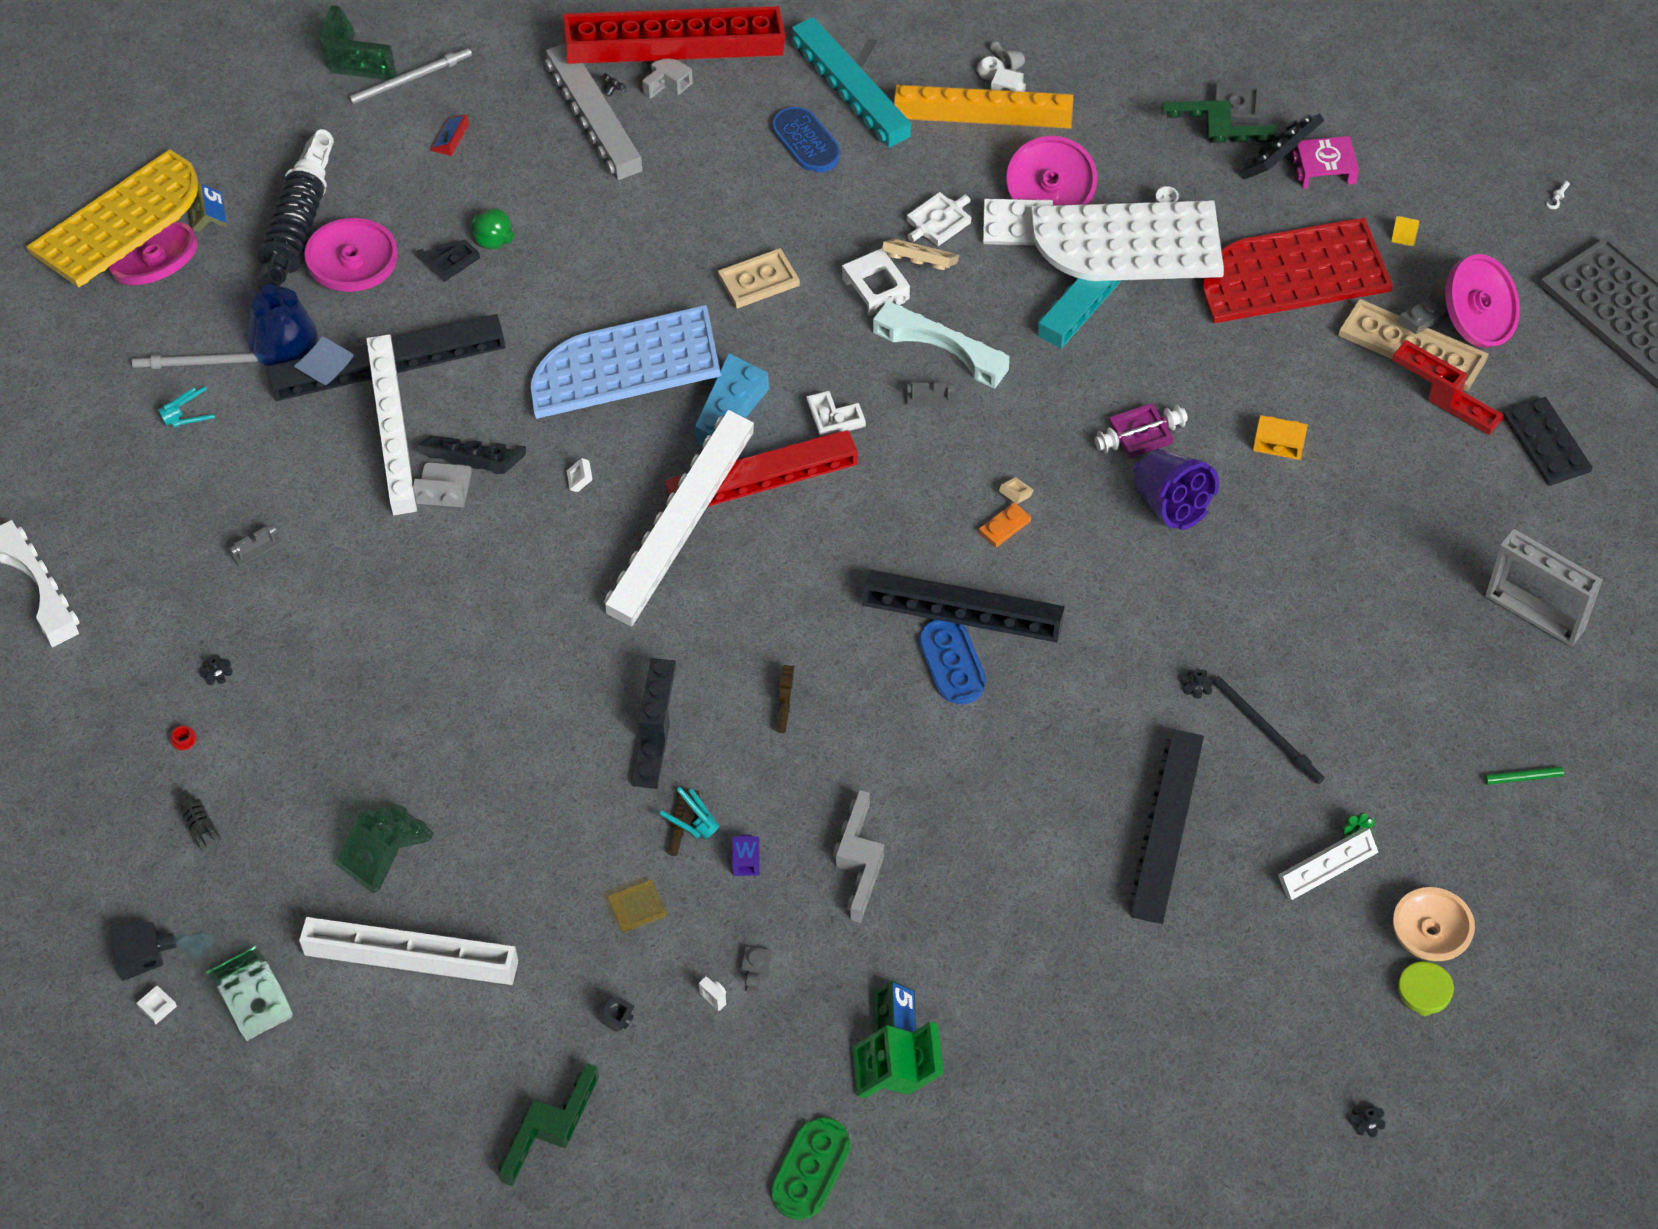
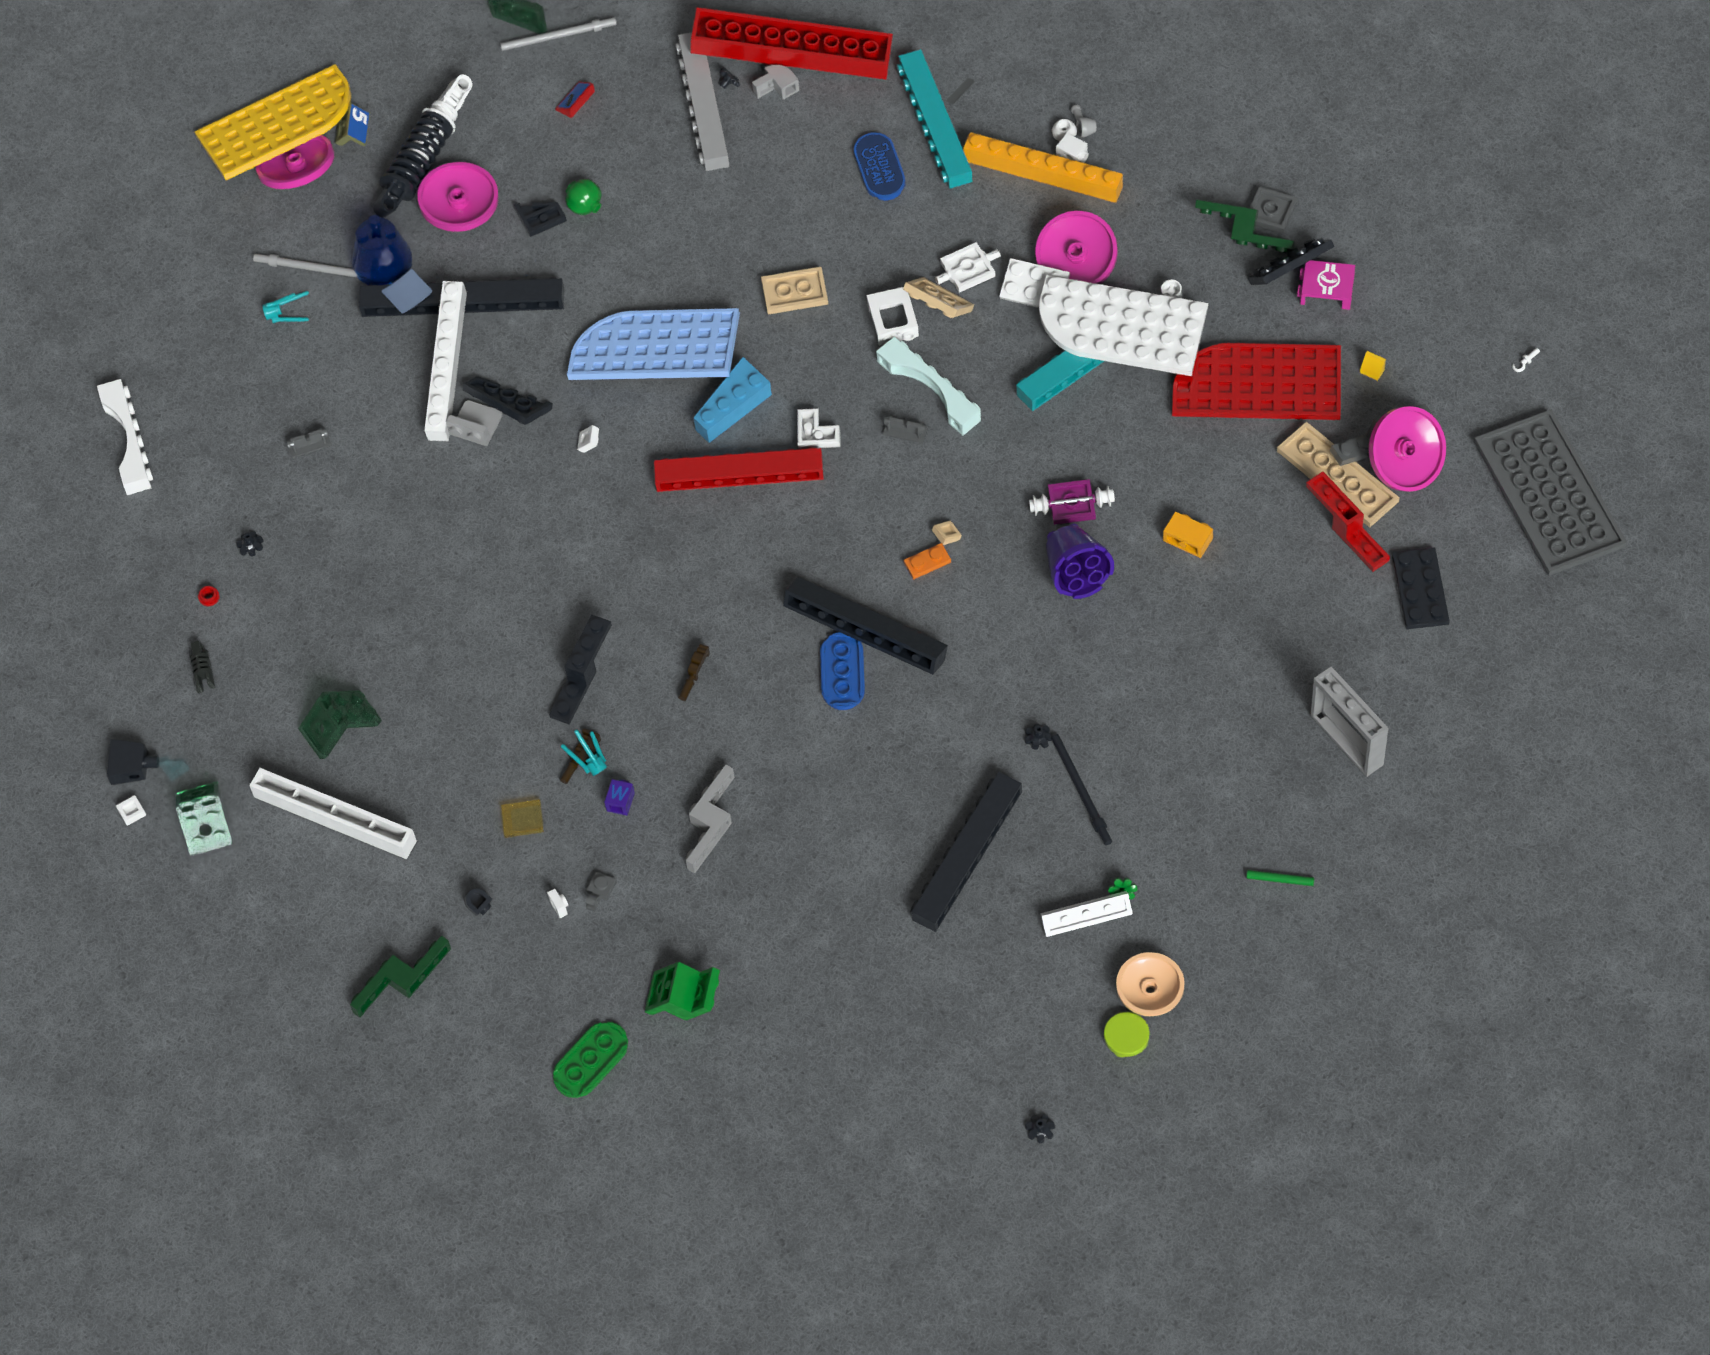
camera: 20 degrees right, 5 degrees up
(679, 518) = (654, 496): white brick -> none
(894, 1007) = (697, 949): panel -> none

